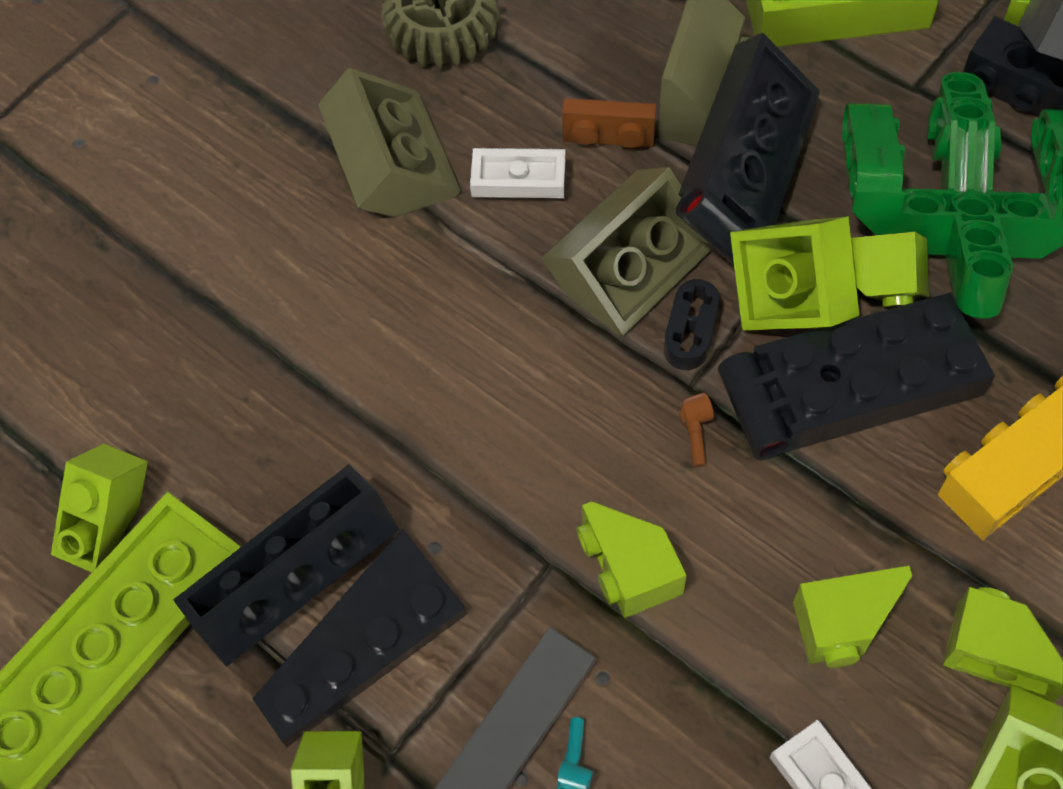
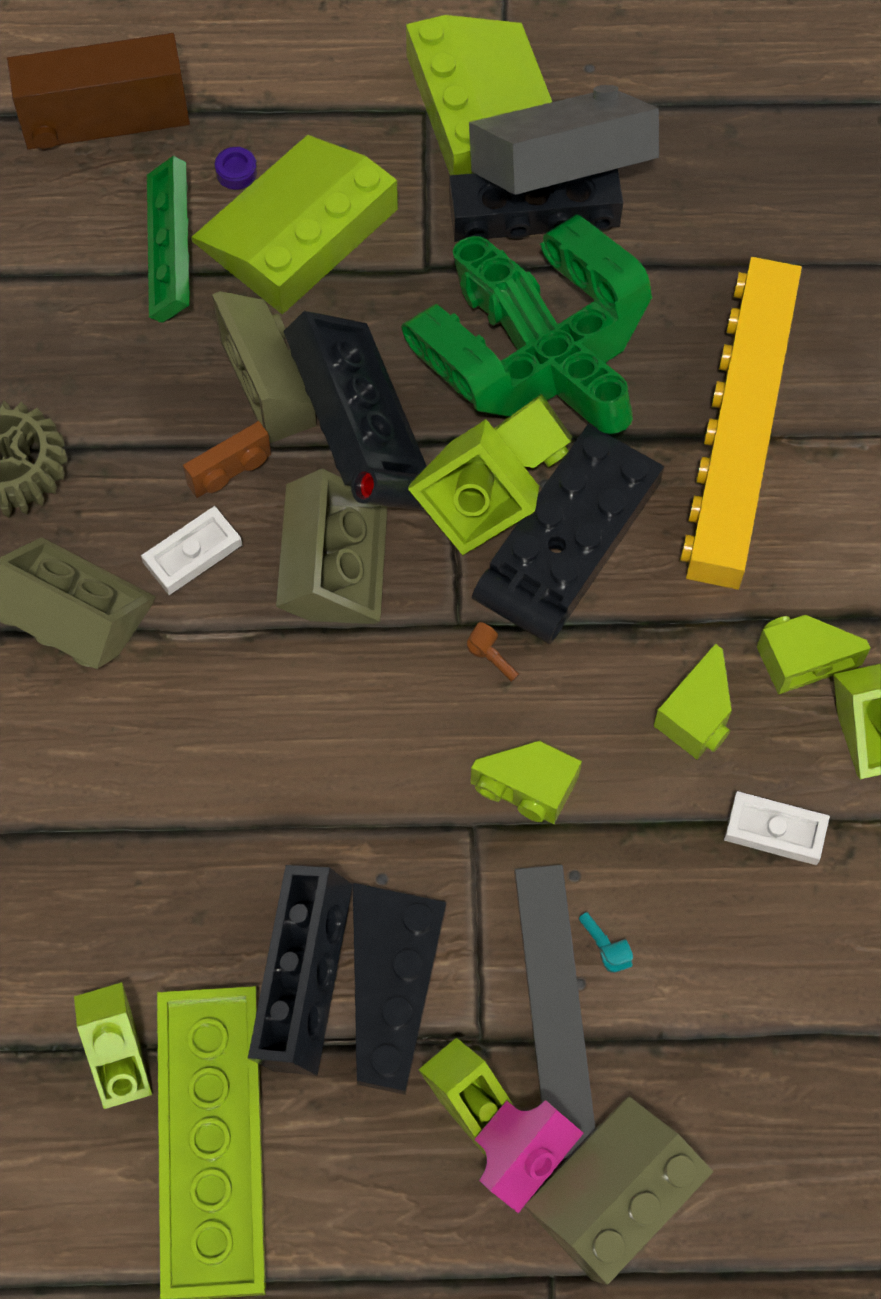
camera: 45 degrees left, 5 degrees up
(682, 322) = (415, 581): black beam -> none

